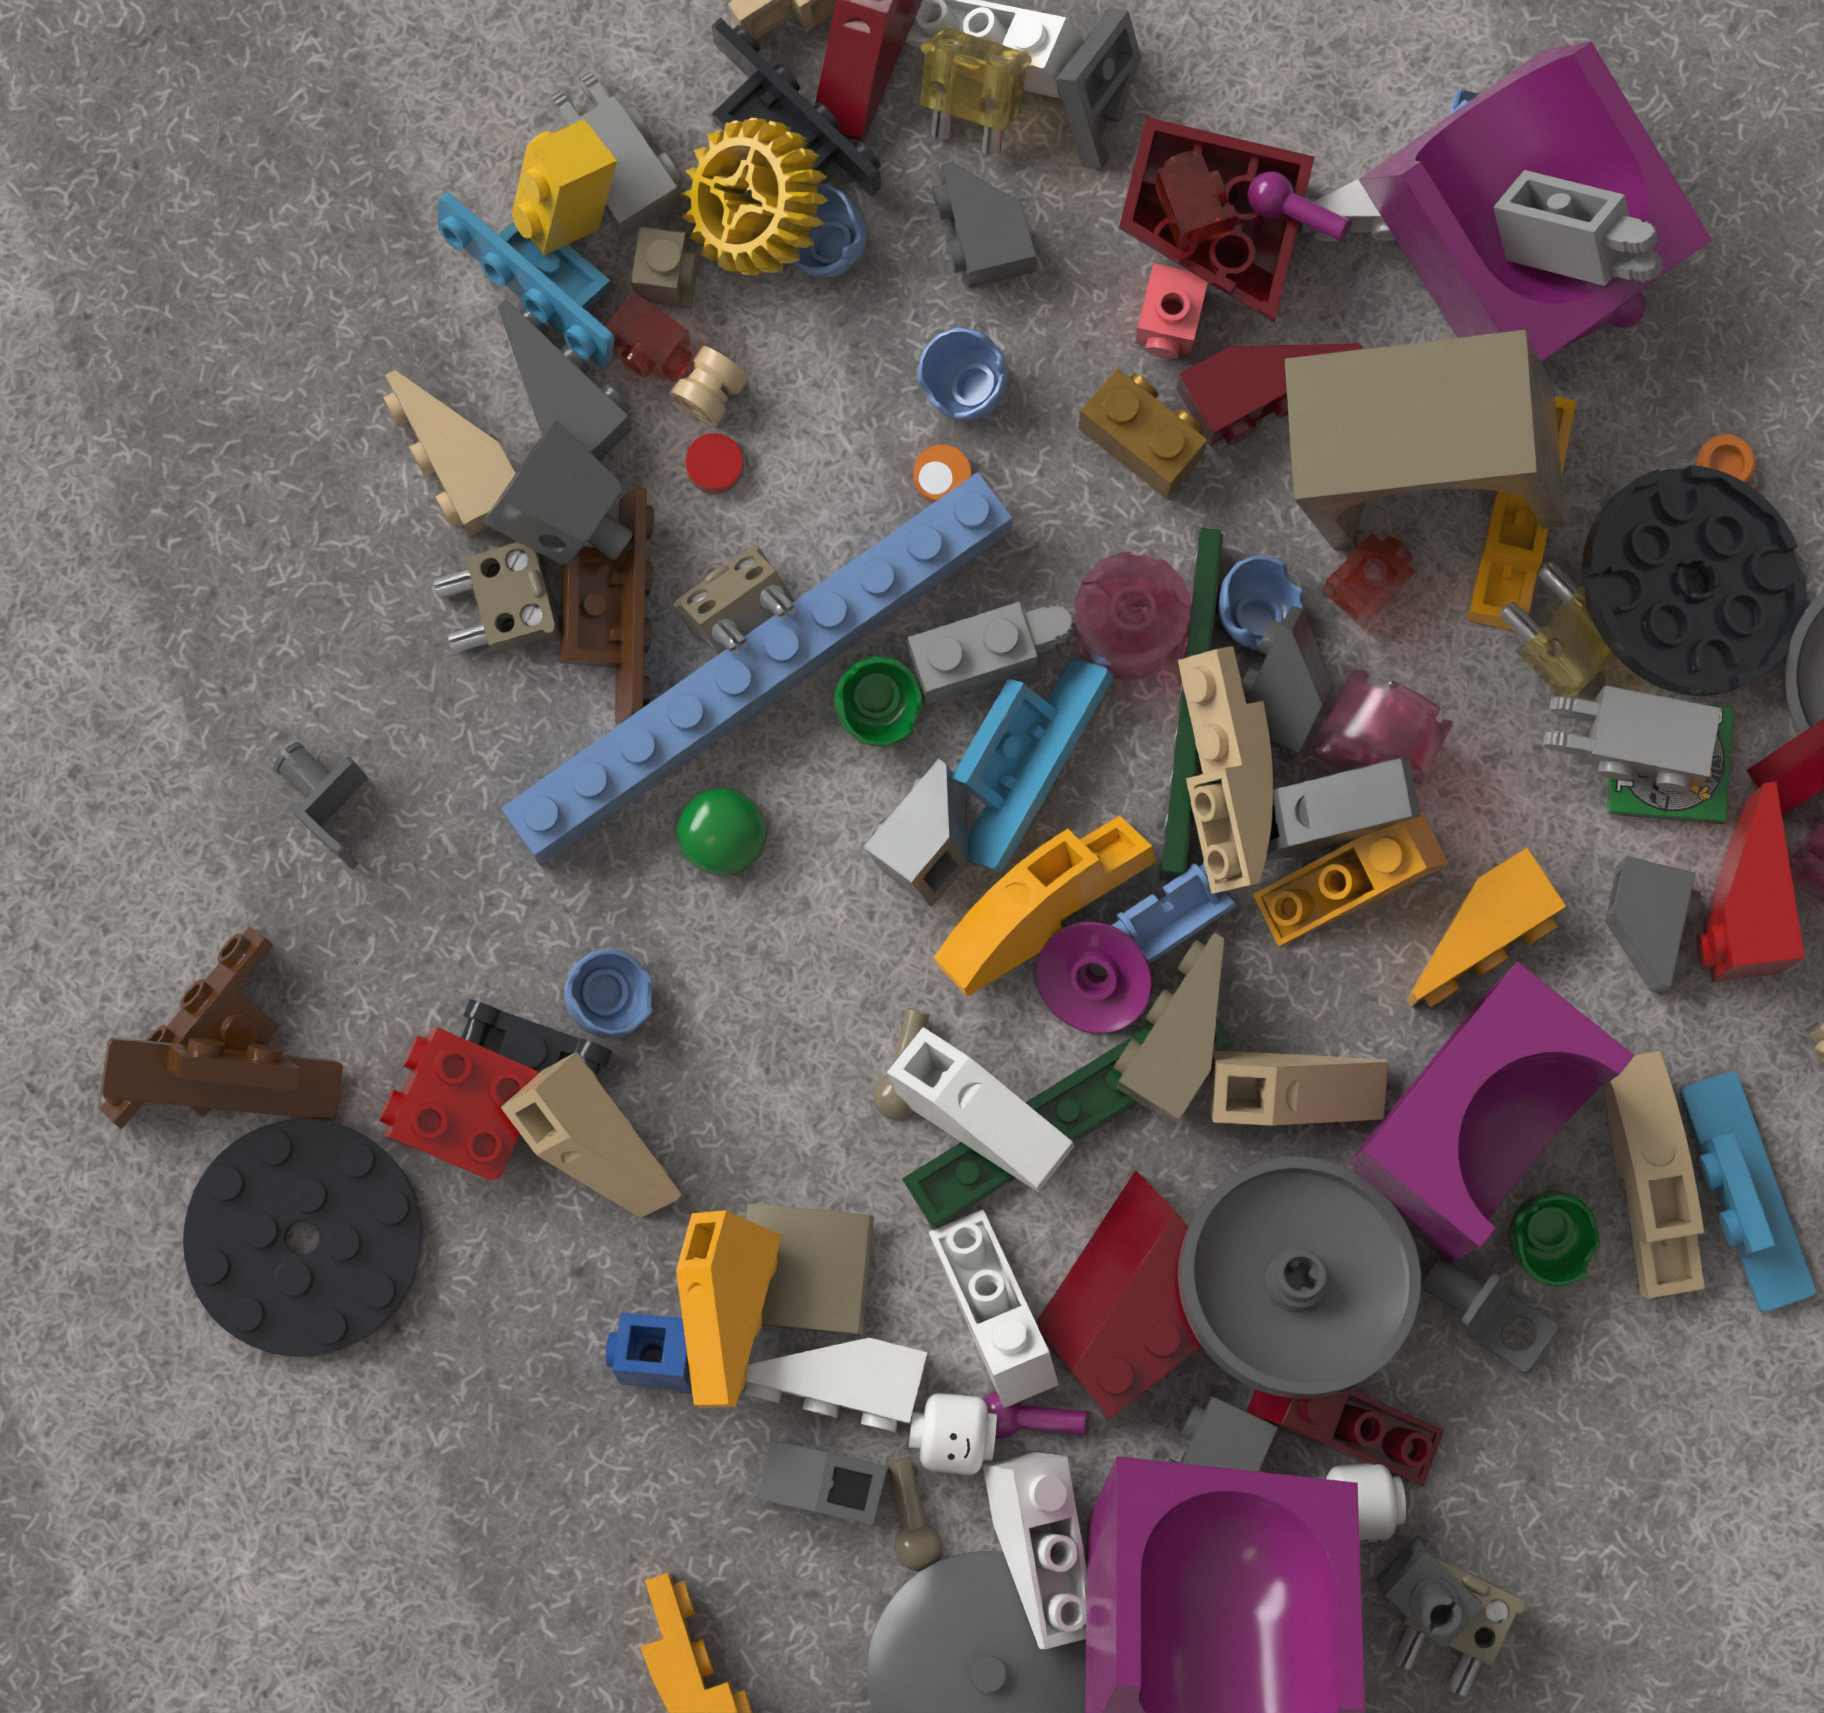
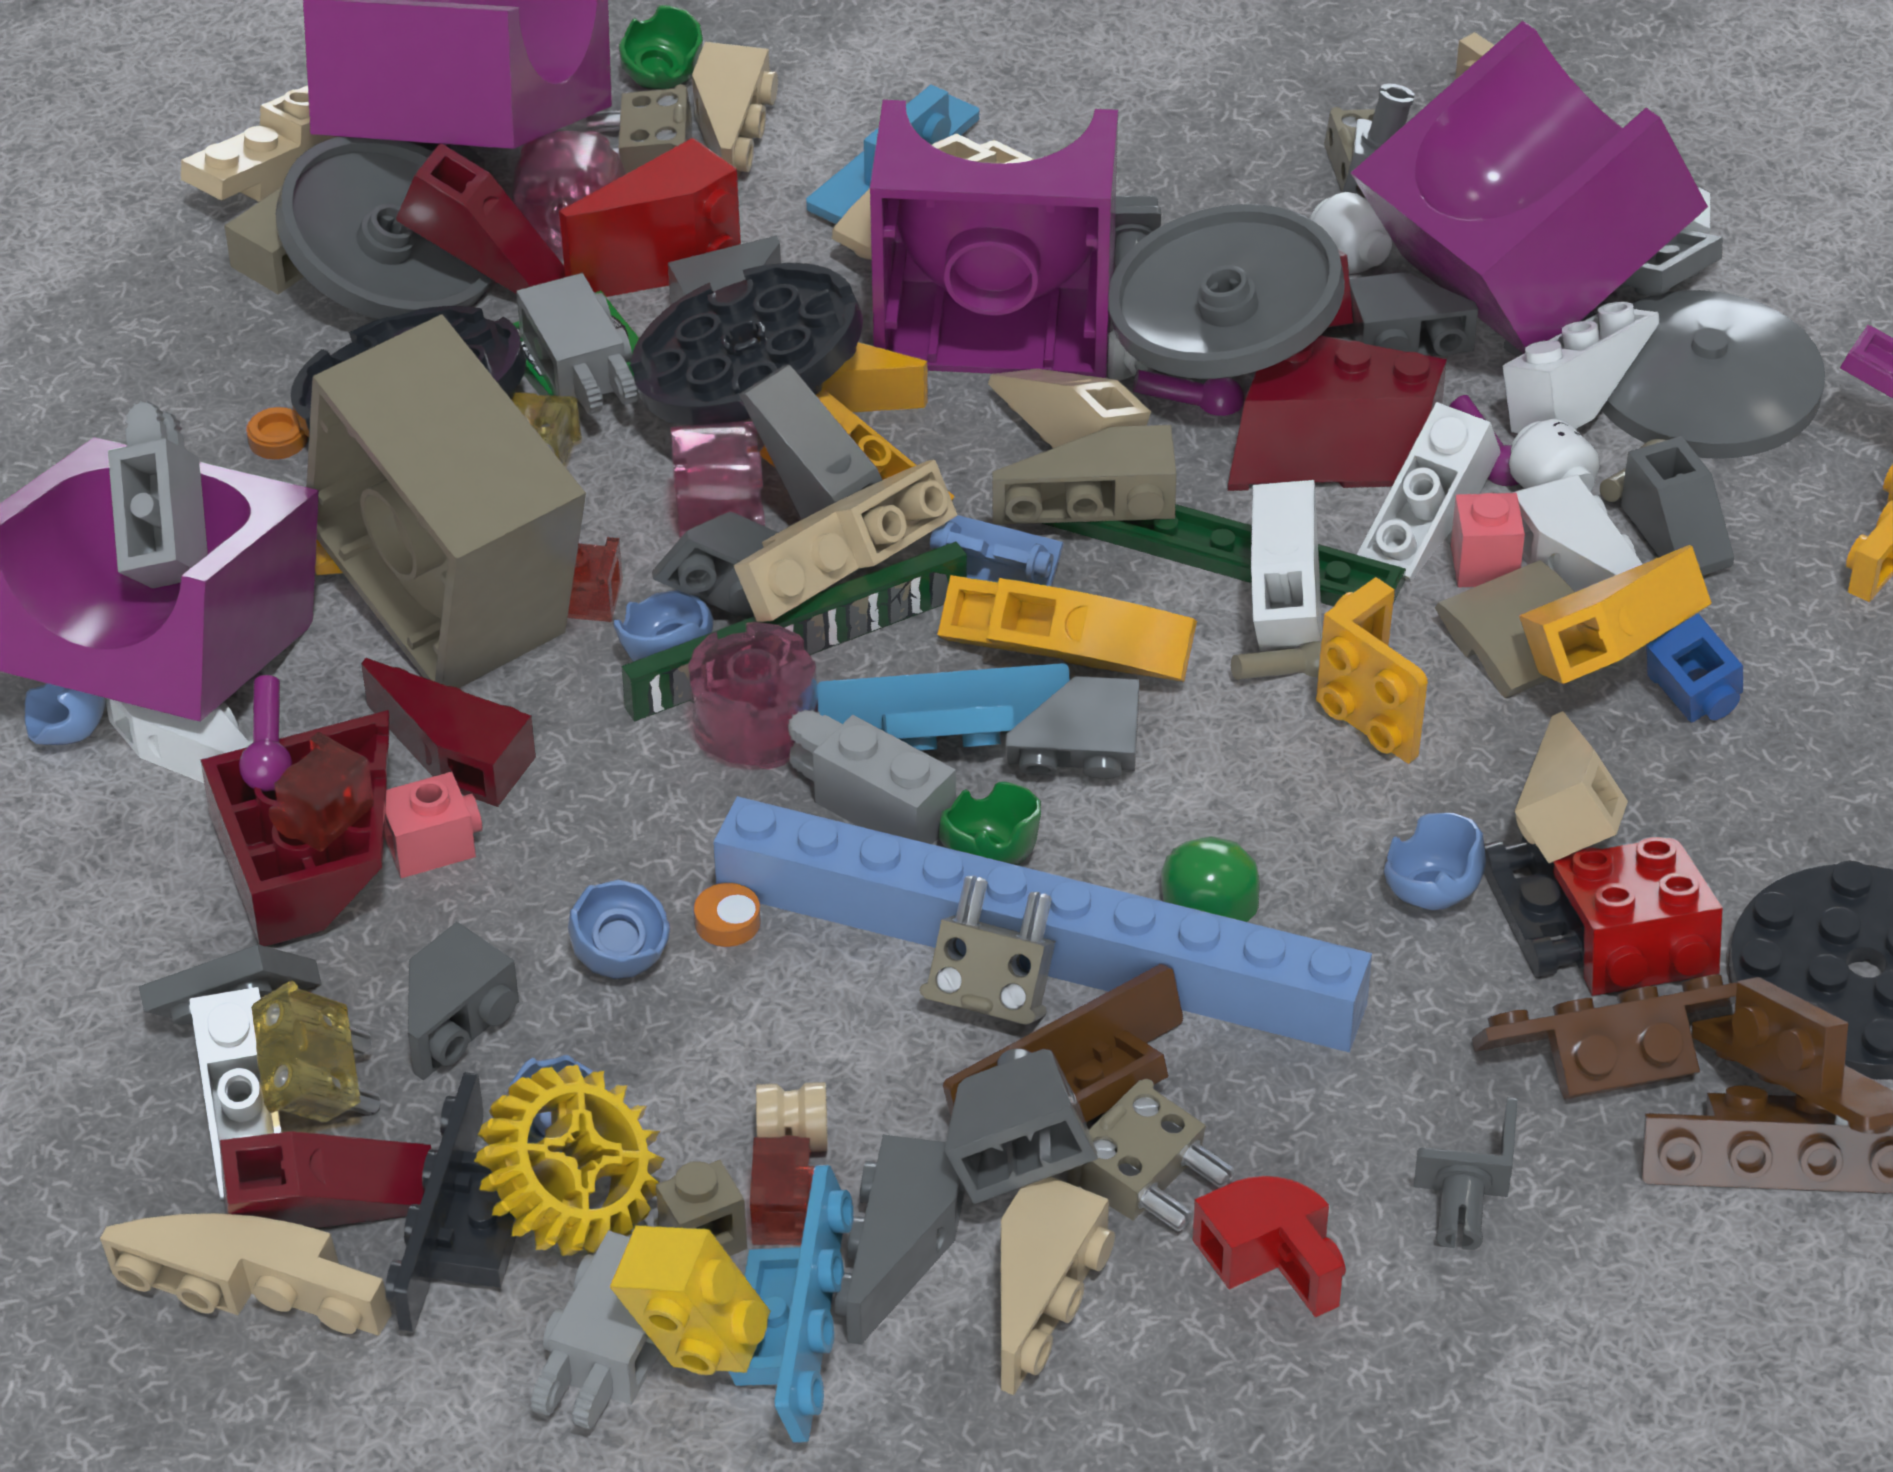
camera: 125 degrees left, 35 degrees down
(370, 1000) = (1616, 1044): none -> reddish brown bracket
(383, 634) = (1270, 1226): none -> red brick
(714, 463) = (863, 1084): red tile -> none
(821, 1060) = (1366, 678): none -> light orange bracket
(908, 1307) = (1486, 537): none -> coral brick
(1078, 994) = (1095, 562): magenta dish -> none
(1143, 432) = (567, 780): pearl gold brick -> none
(1489, 896) = (728, 339): none -> black plate

